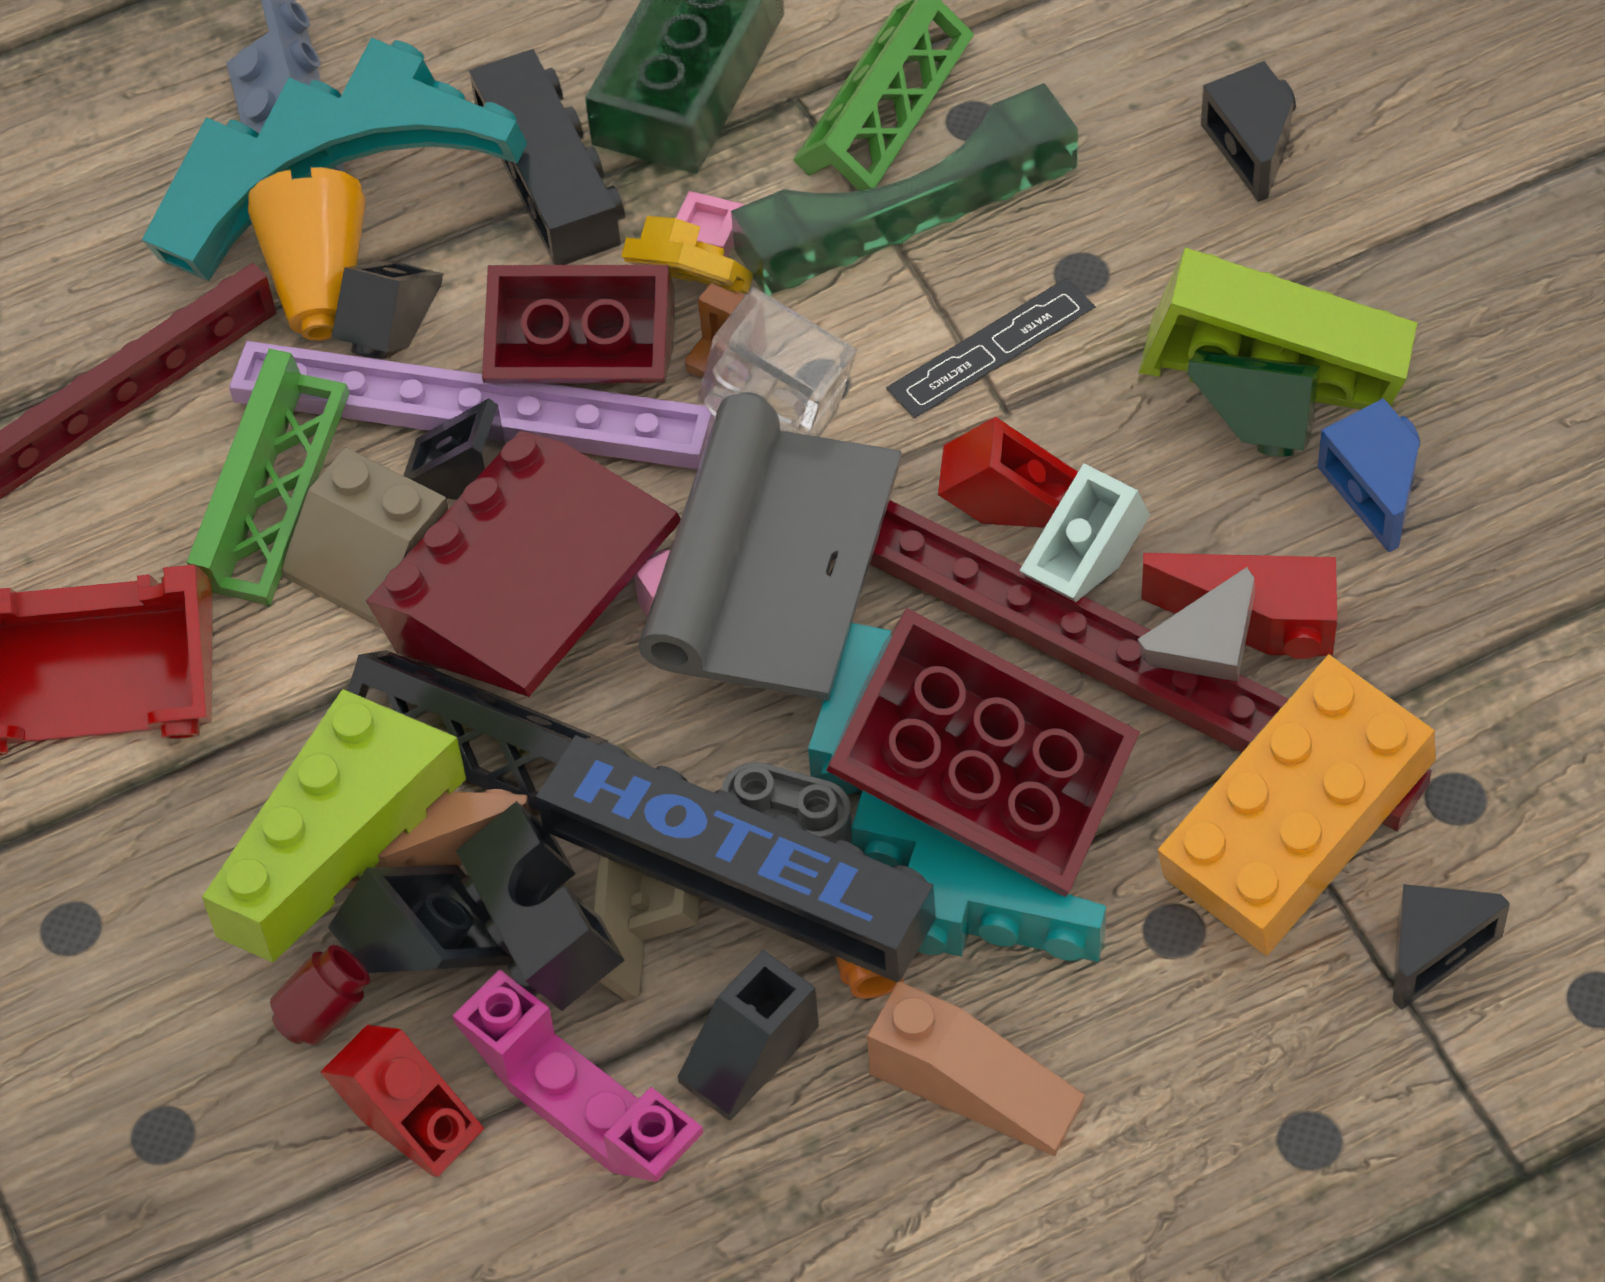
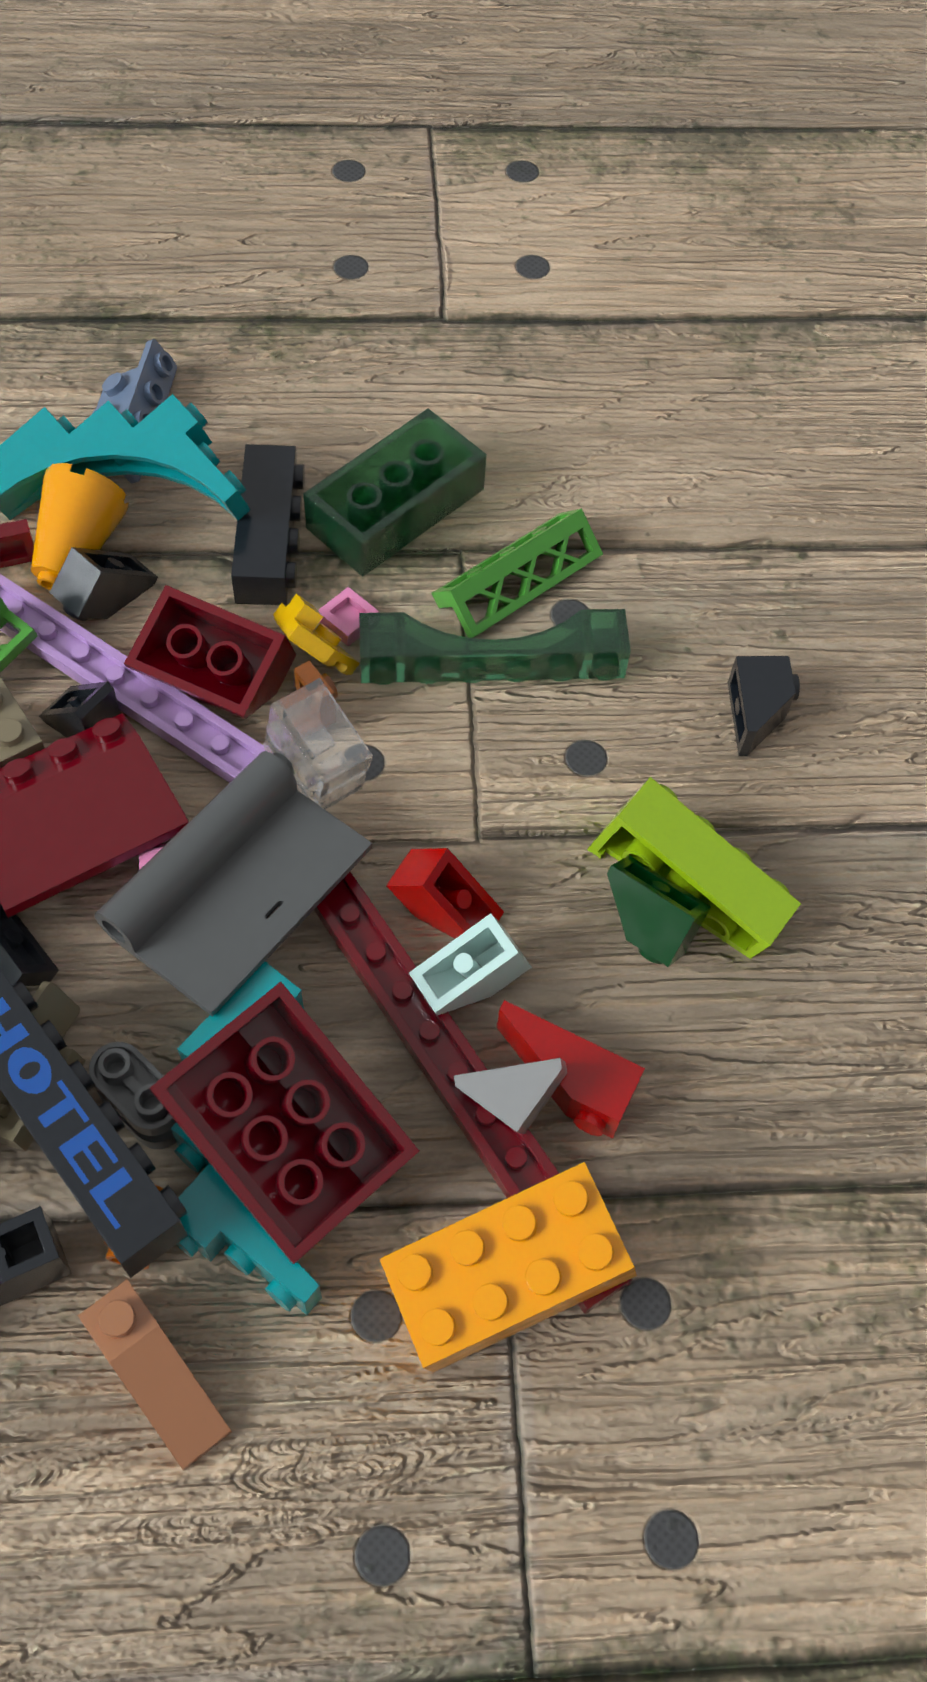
camera: 15 degrees right, 5 degrees up
(990, 347) = (493, 785): black sticker -> none
(1373, 467) = (716, 1002): blue slope -> none
(1440, 934) = (567, 1427): black slope -> none

